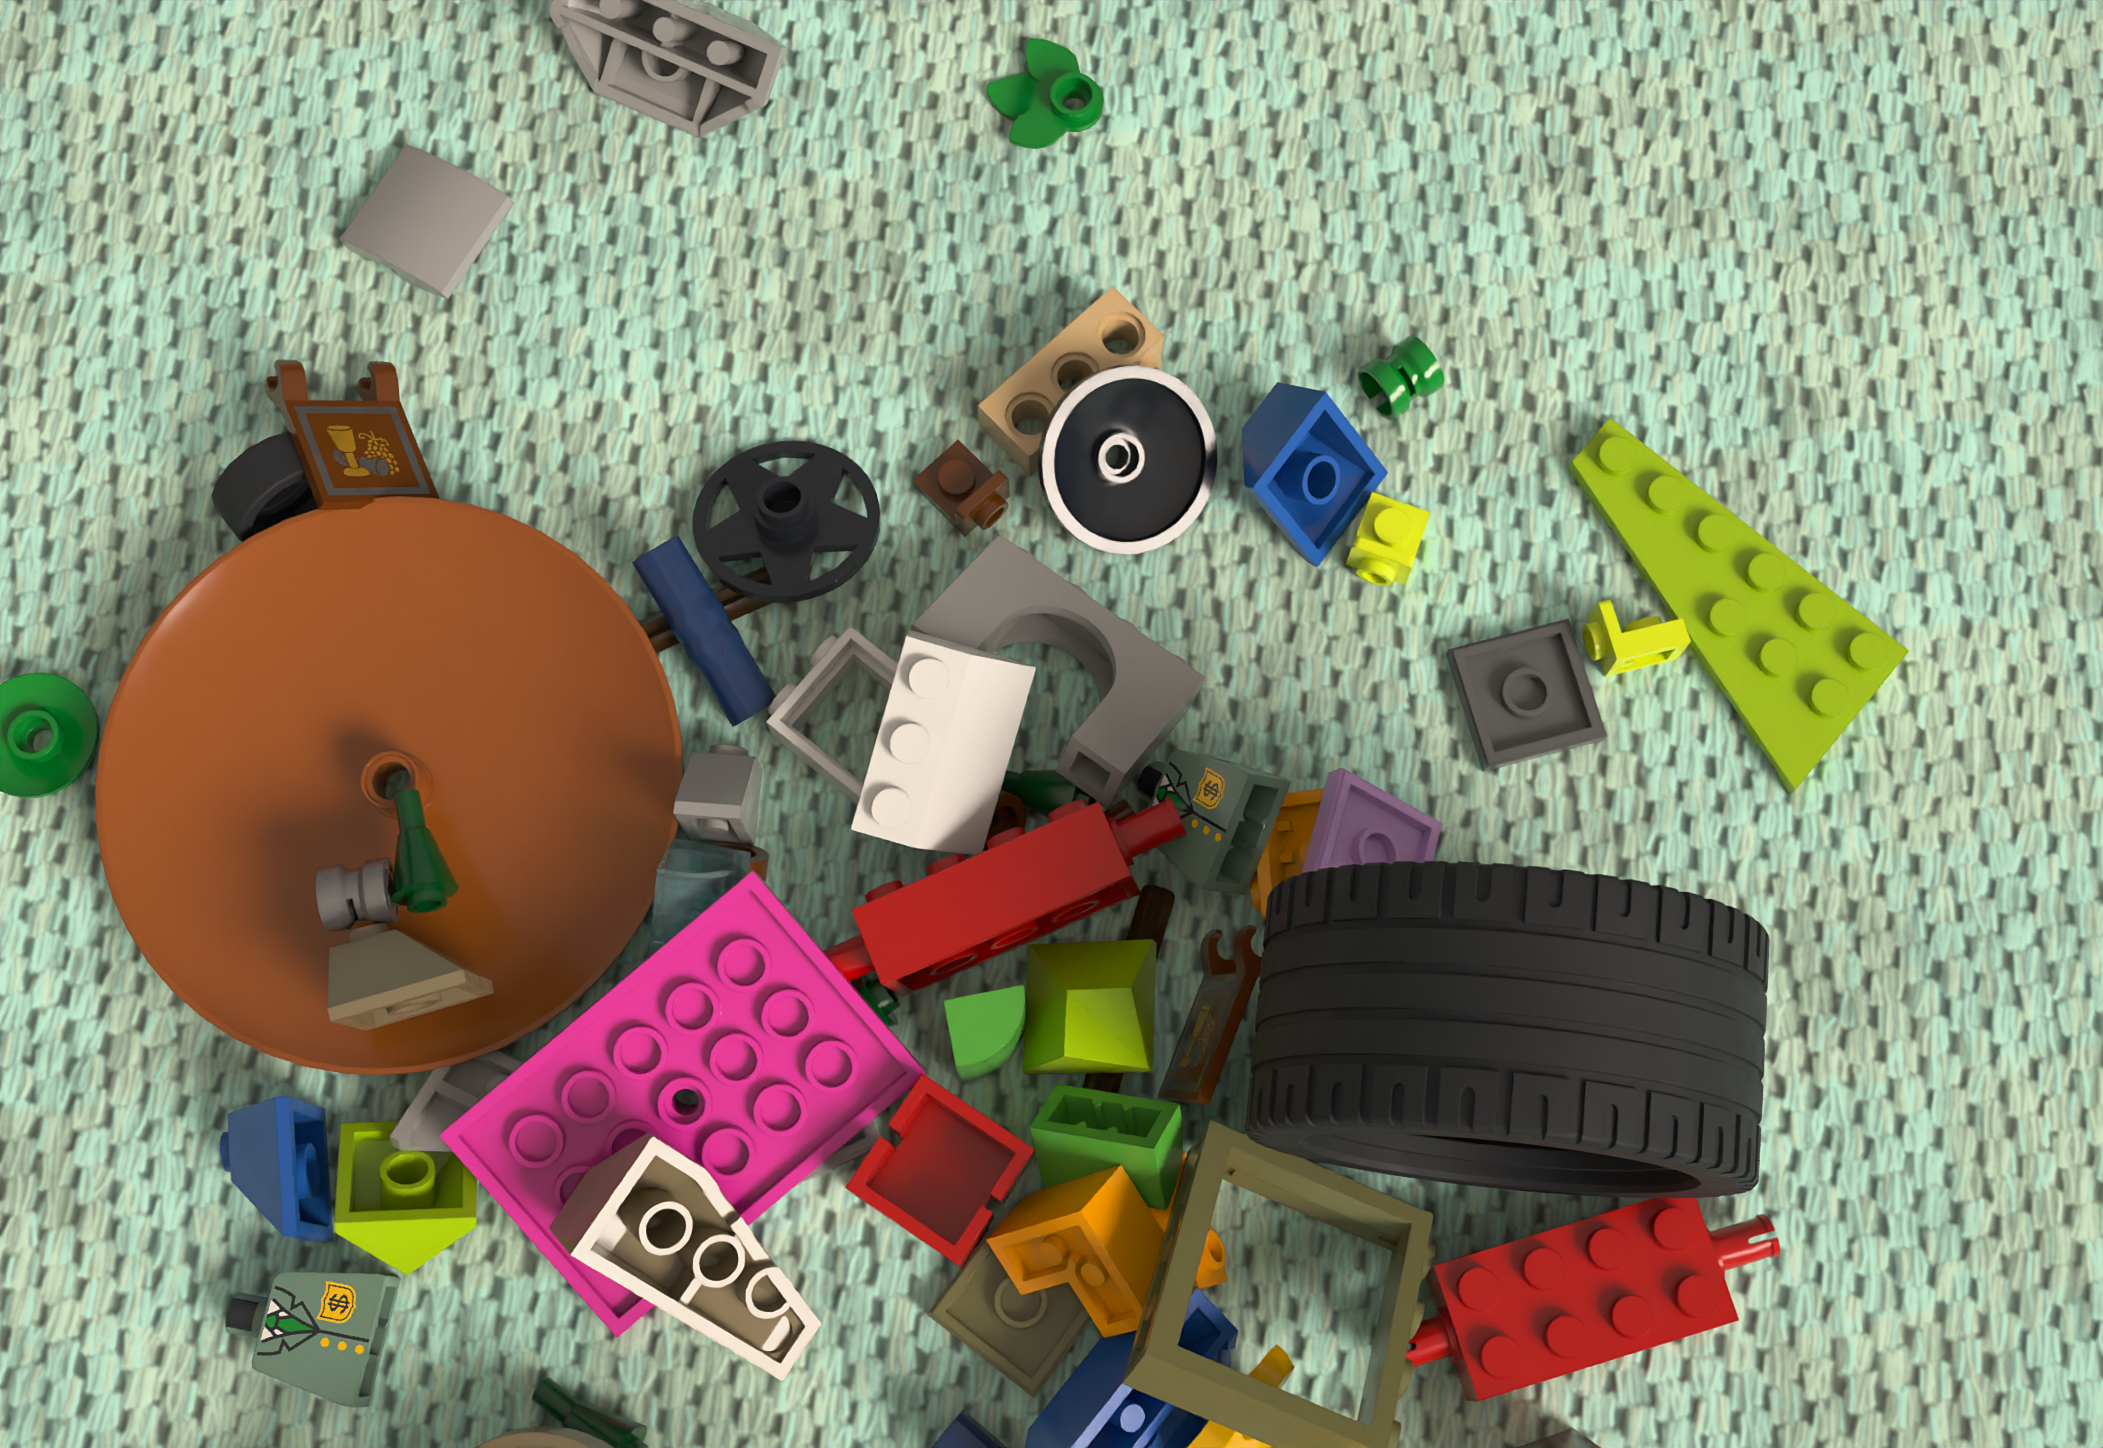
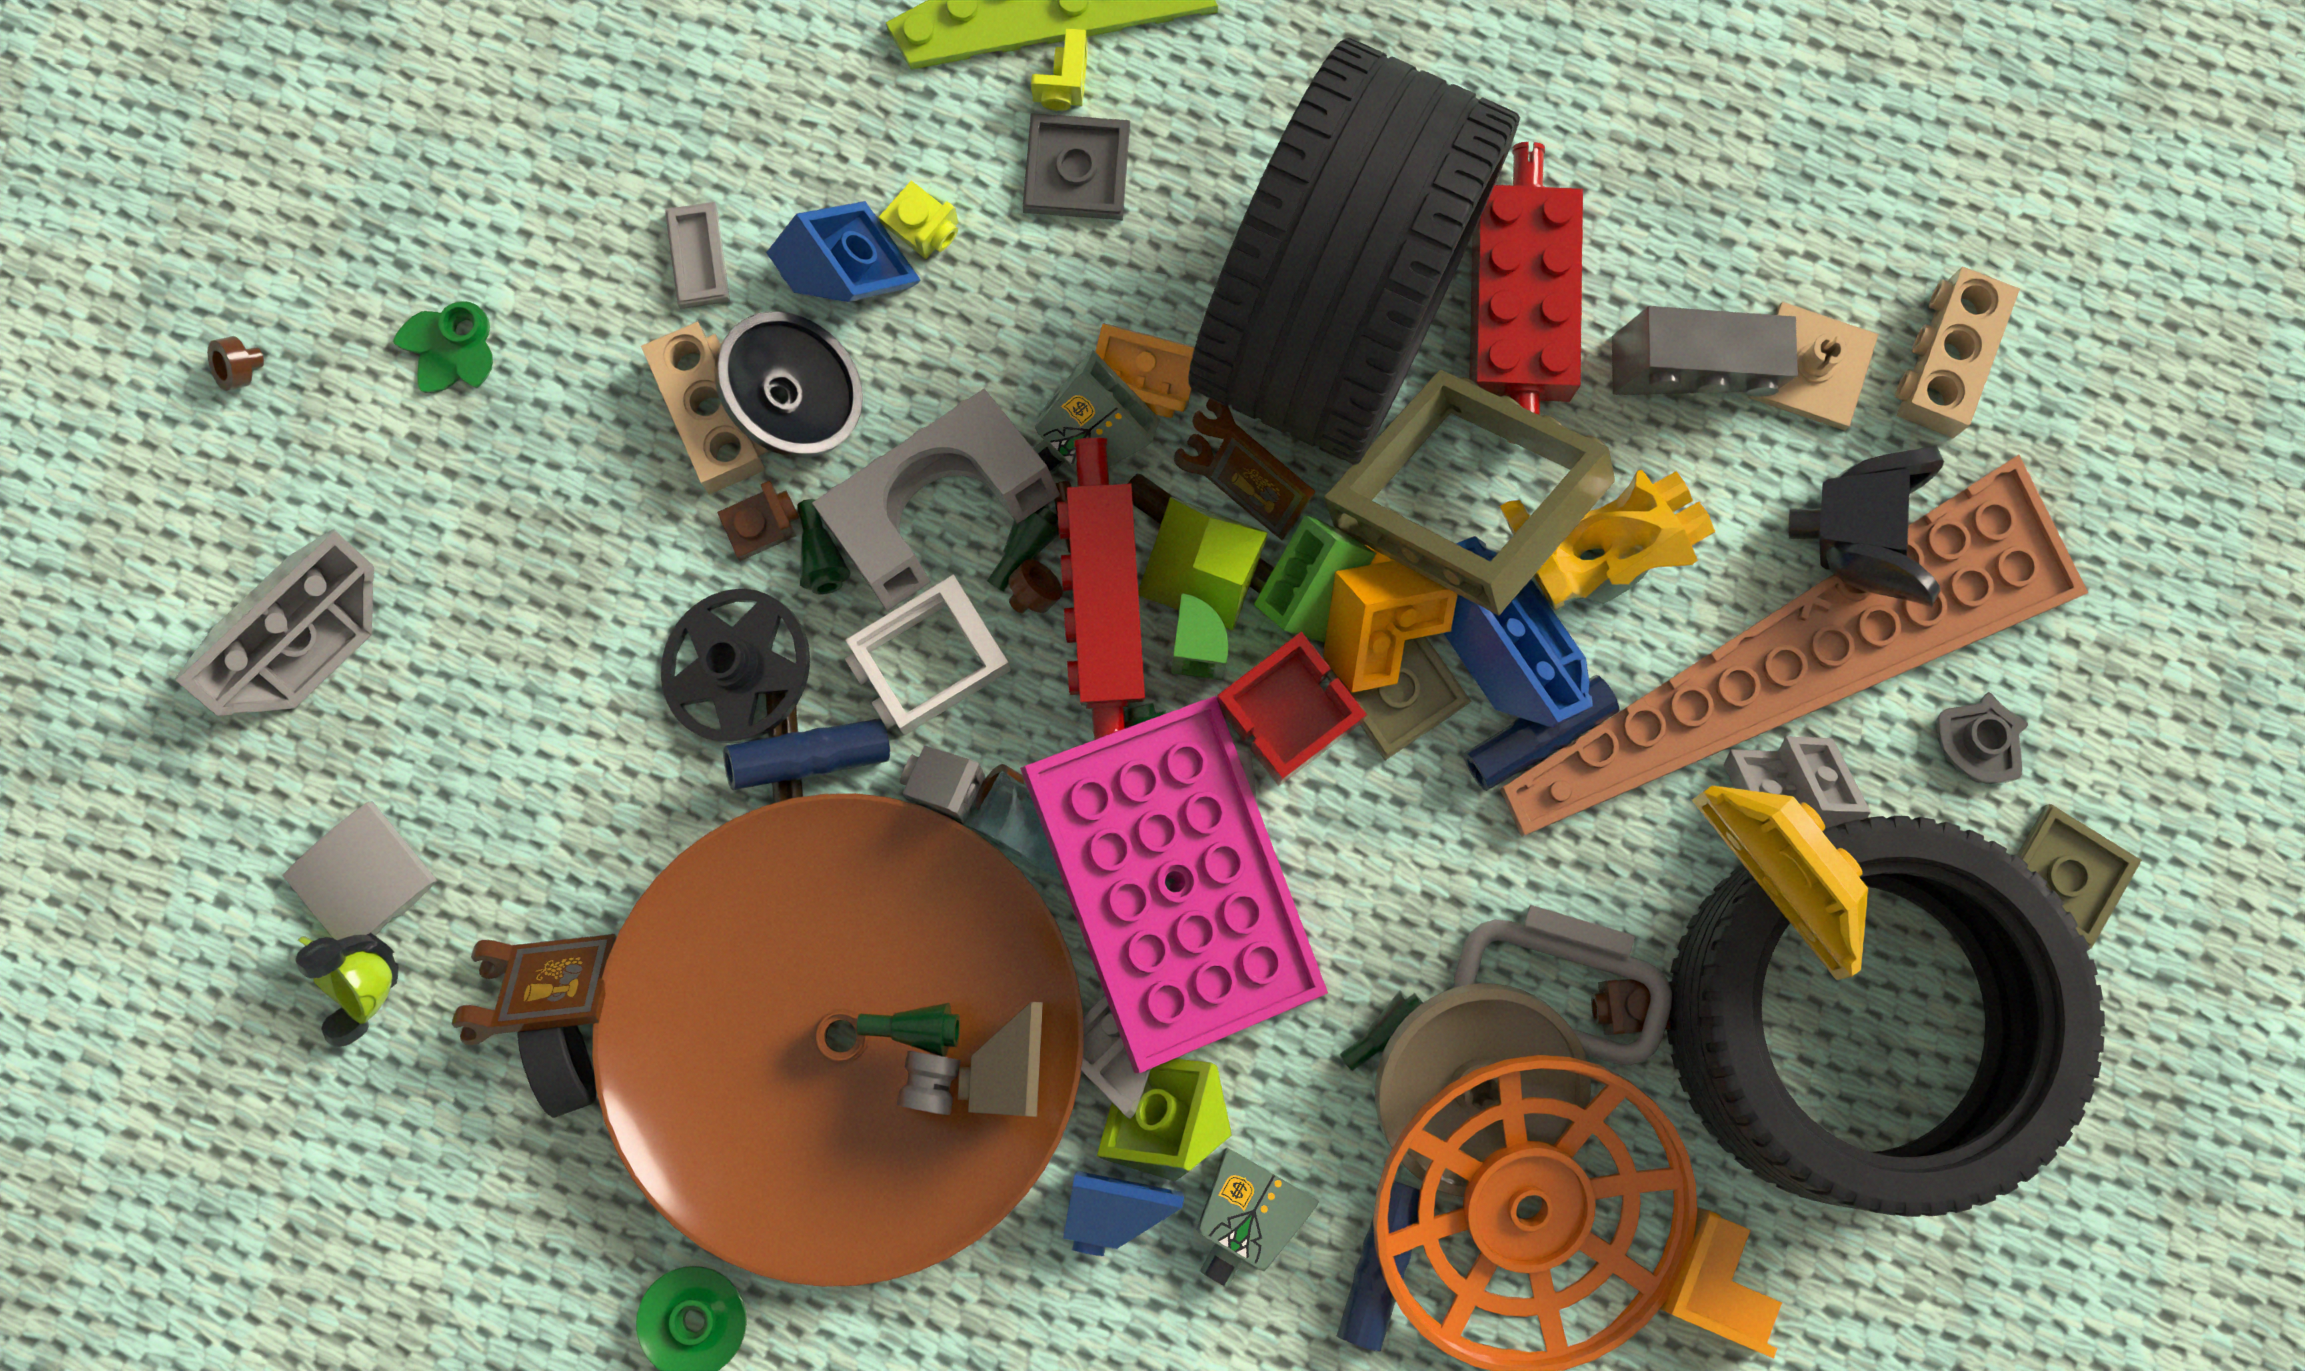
camera: 75 degrees left, 5 degrees up
(322, 252) = (352, 973): none -> cap
(680, 1244) = (1280, 915): dark tan wedge -> none
(936, 568) = (821, 563): none -> dark green cone
(943, 746) = (973, 596): white slope -> none
(1250, 314) = (697, 255): none -> light grey tile
(1367, 826) = (1155, 317): lavender tile -> none
(1403, 376) = (795, 158): green wheel -> none

